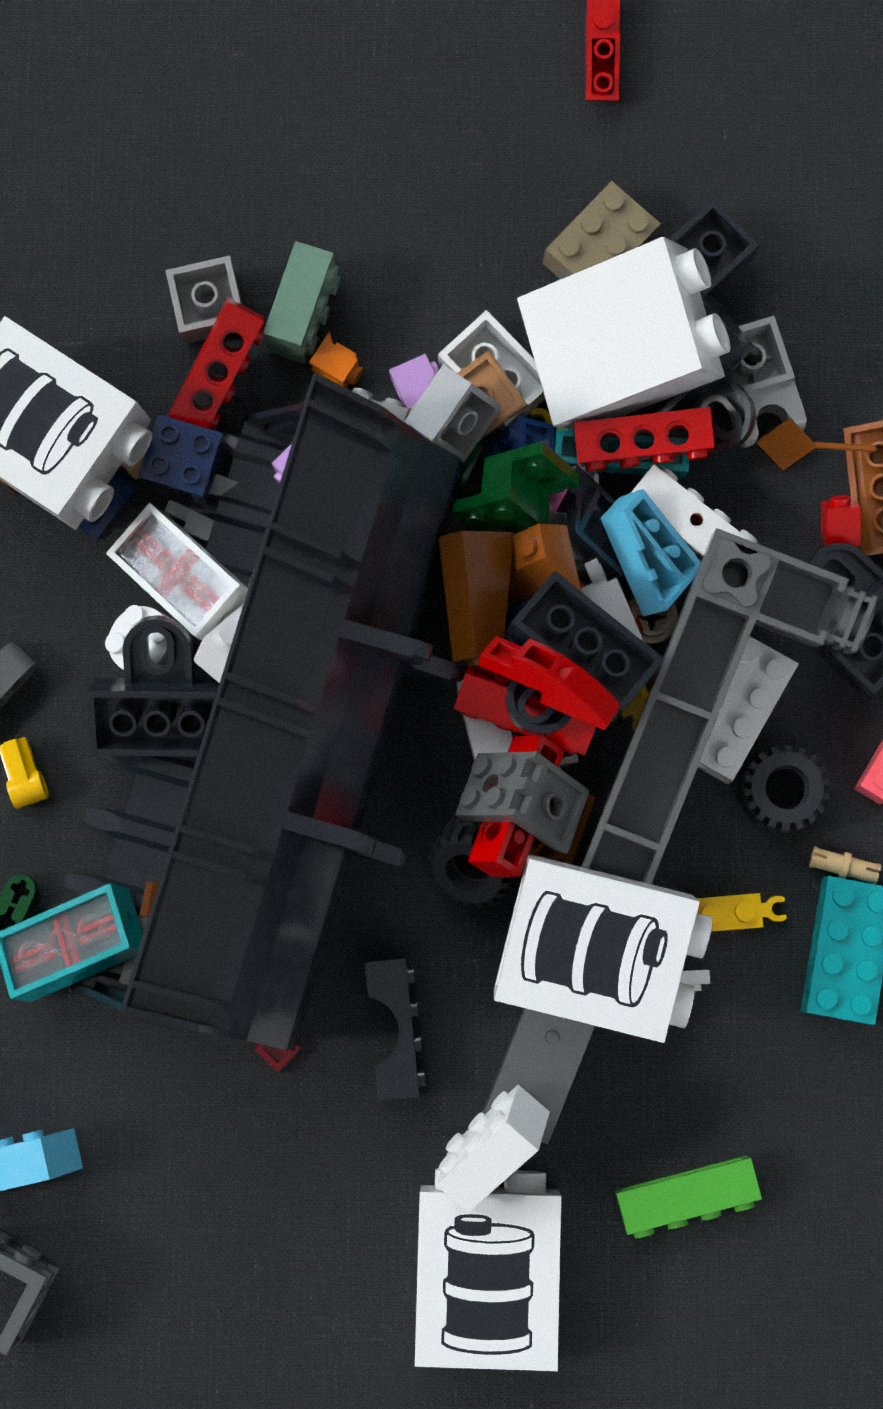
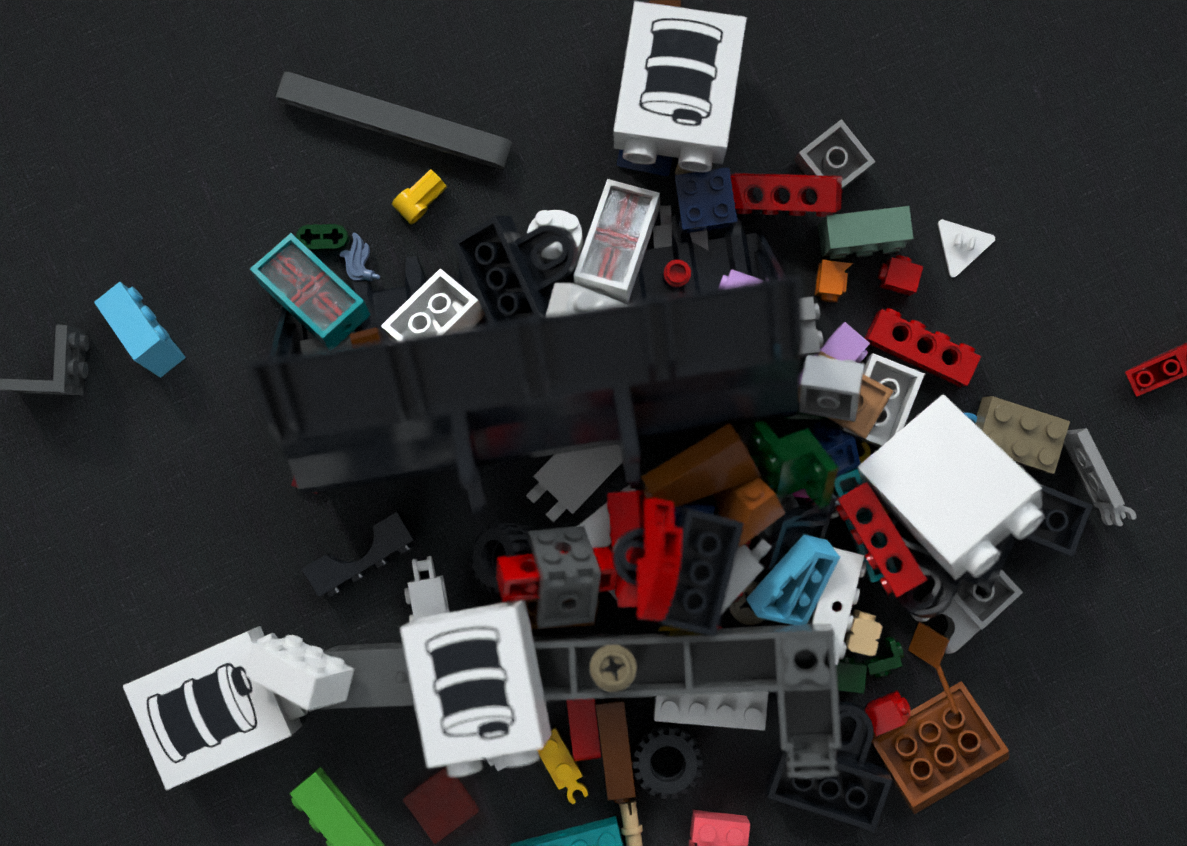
camera: 55 degrees right, 5 degrees up
(58, 878) = (356, 260): none -> sand blue piece
(152, 807) = (435, 308): none -> white brick
(247, 526) = (677, 273): none -> red plate
(365, 208) = (962, 245): none -> white piece
(367, 288) = (900, 275): none -> red brick
(419, 745) = (575, 476): none -> white tile
(452, 318) = (963, 355): none -> red brick
(473, 974) = (428, 594): none -> white brick
(660, 801) = (608, 680): none -> dark tan gear
(685, 181) = (1096, 477): none -> light grey tile
(703, 865) = (583, 729): none -> red beam
(719, 1069) = (441, 805): none -> clear red plate
(740, 506) = (863, 633): none -> tan brick
(744, 839) = (615, 749): none -> reddish brown slope
(783, 539) = (850, 675): none -> dark green brick
(786, 506) = (882, 664): none -> dark green bracket

